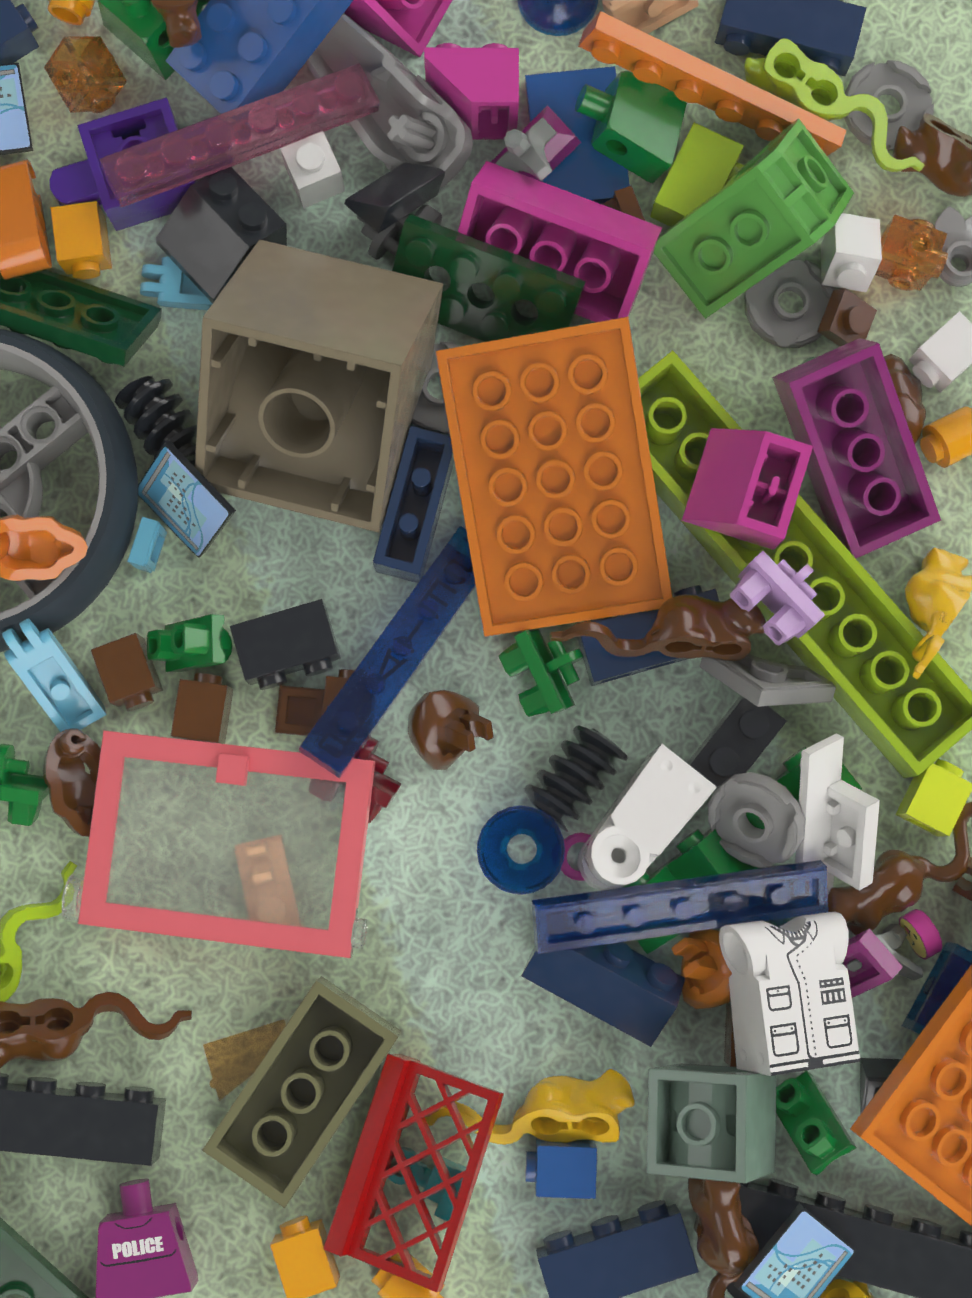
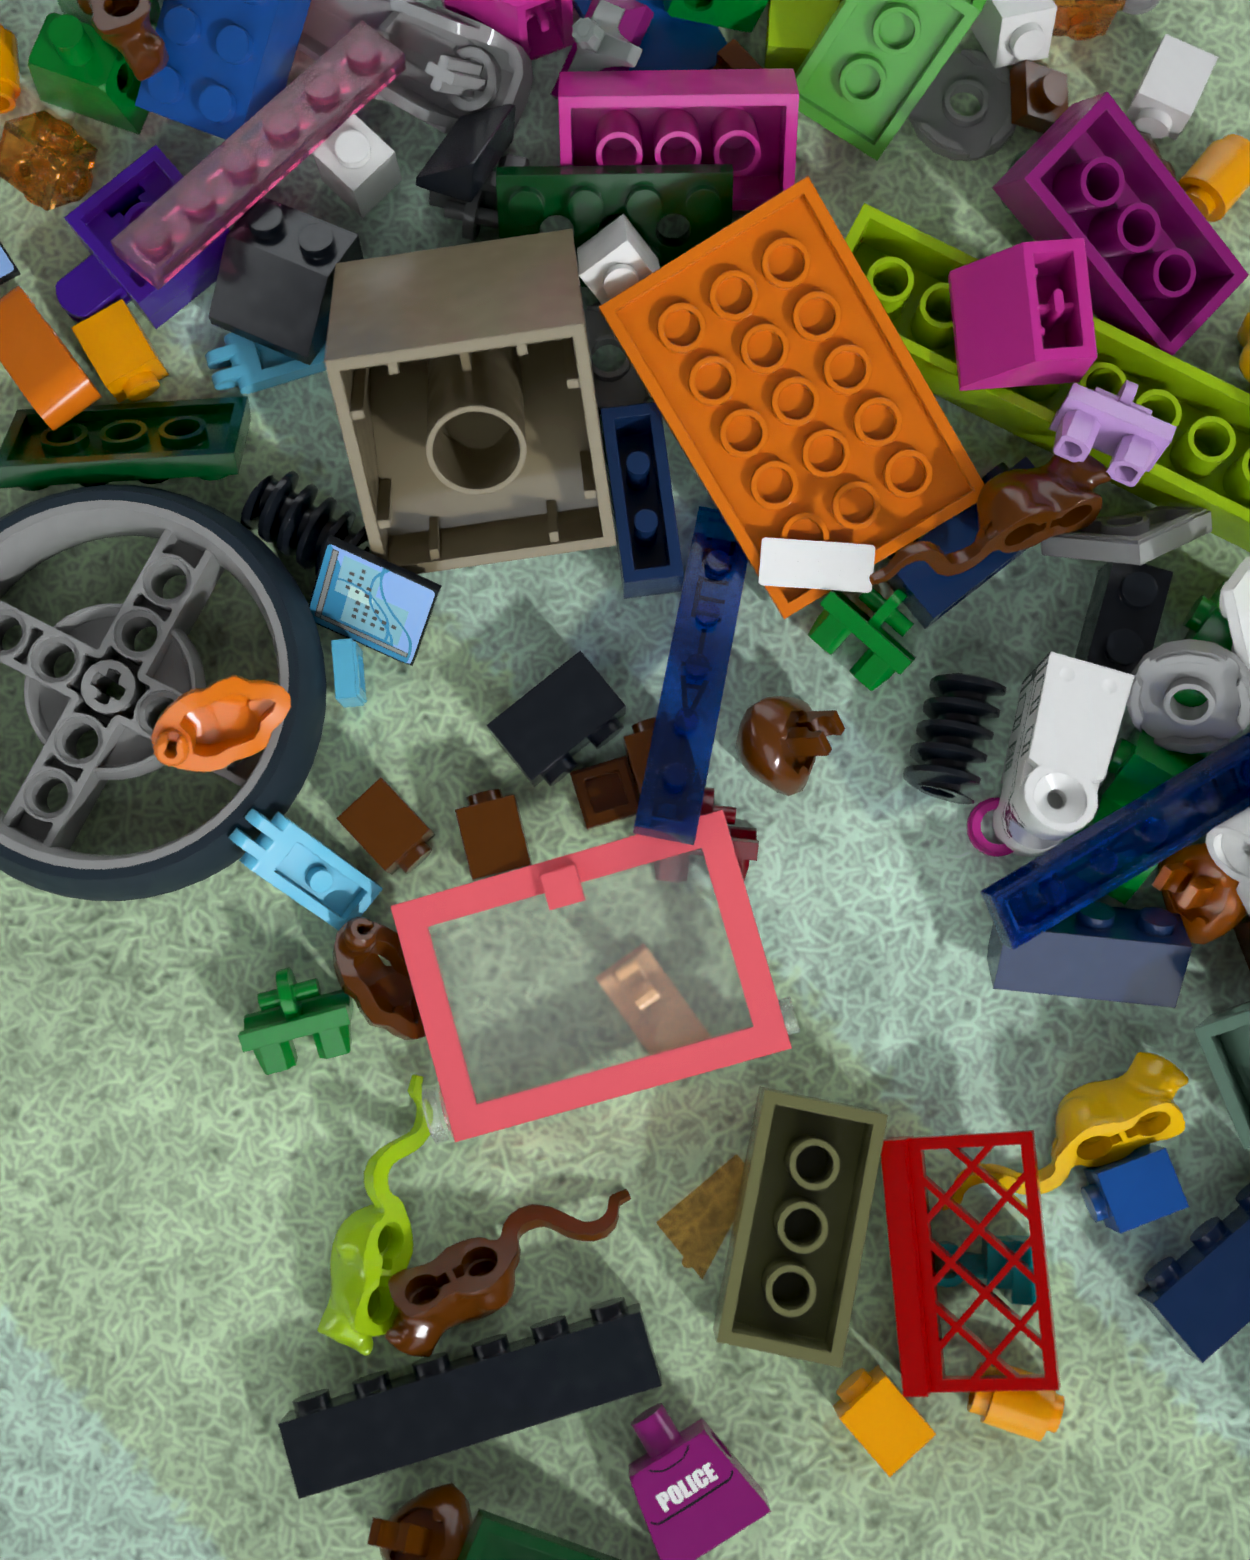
camera: 20 degrees left, 0 degrees up
(190, 644) = (448, 765): green hips -> none
(469, 319) = (615, 260): none -> white brick
(515, 876) = (962, 838): clear blue piece -> none
(522, 605) = (816, 564): none -> white sticker

